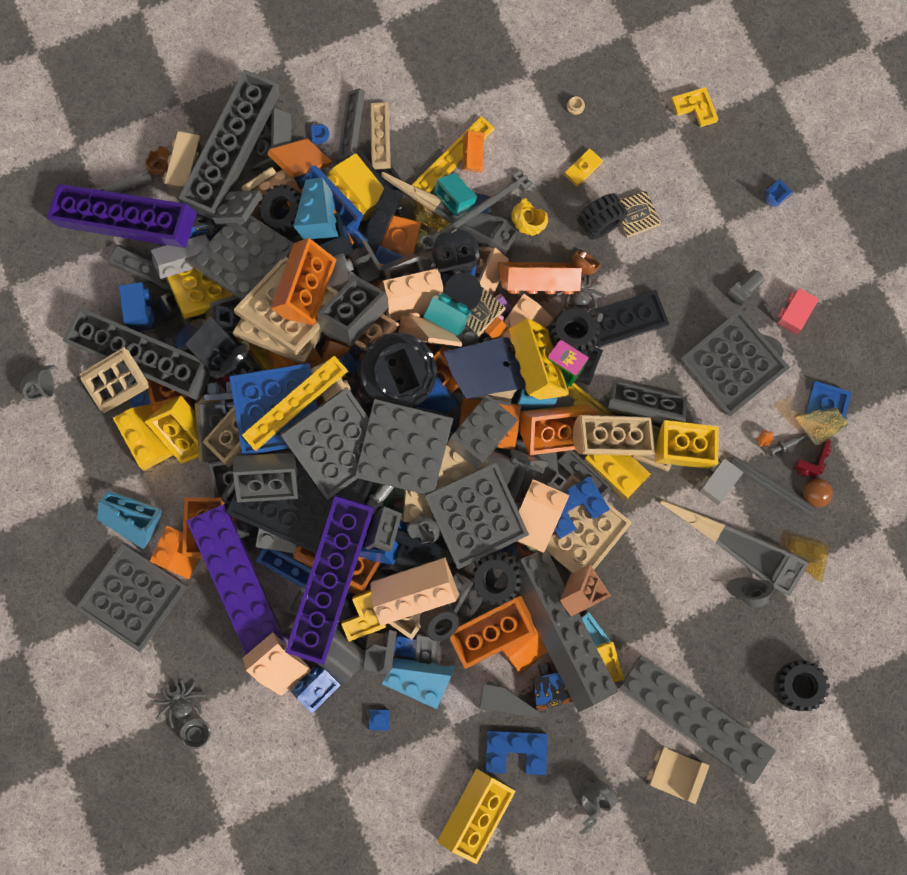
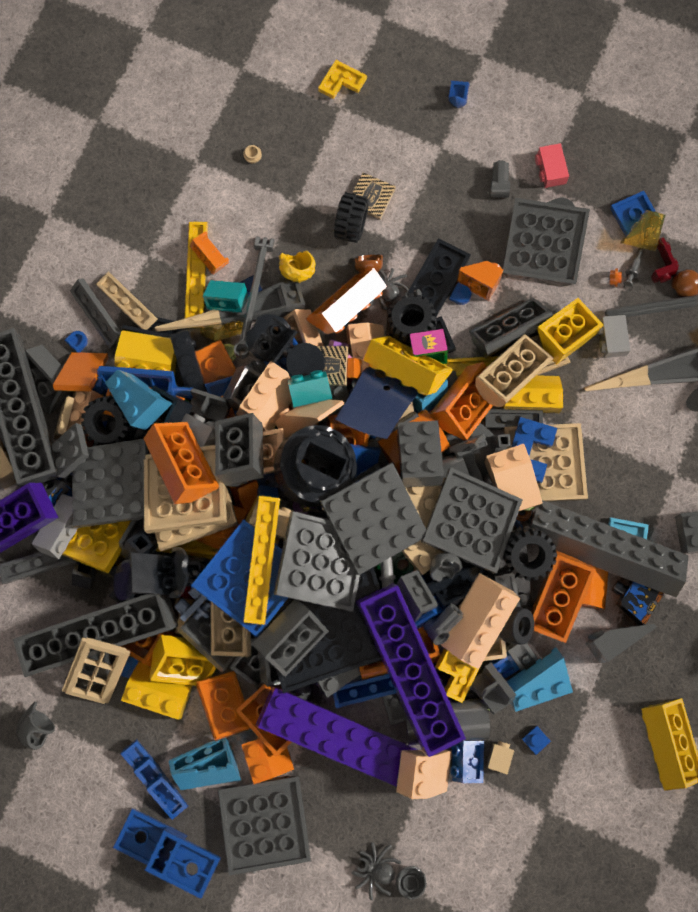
camera: 35 degrees left, 0 degrees up
(47, 553) = (167, 853): none -> blue bracket
(86, 495) = (154, 779): none -> blue slope
(136, 307) = (59, 597): blue piece -> none
(181, 480) = (220, 699): none -> orange tile
(341, 707) = (500, 757): none -> tan brick
(380, 569) = (439, 627): none -> dark grey piece
(531, 744) = (640, 671): blue plate -> none
(583, 167) = (301, 195): yellow plate -> none
(583, 591) = (598, 506): nougat wedge -> none
(609, 657) = (657, 536): yellow plate -> none
(634, 347) = (461, 294): none -> blue tile
(658, 347) = (481, 278): none -> orange slope

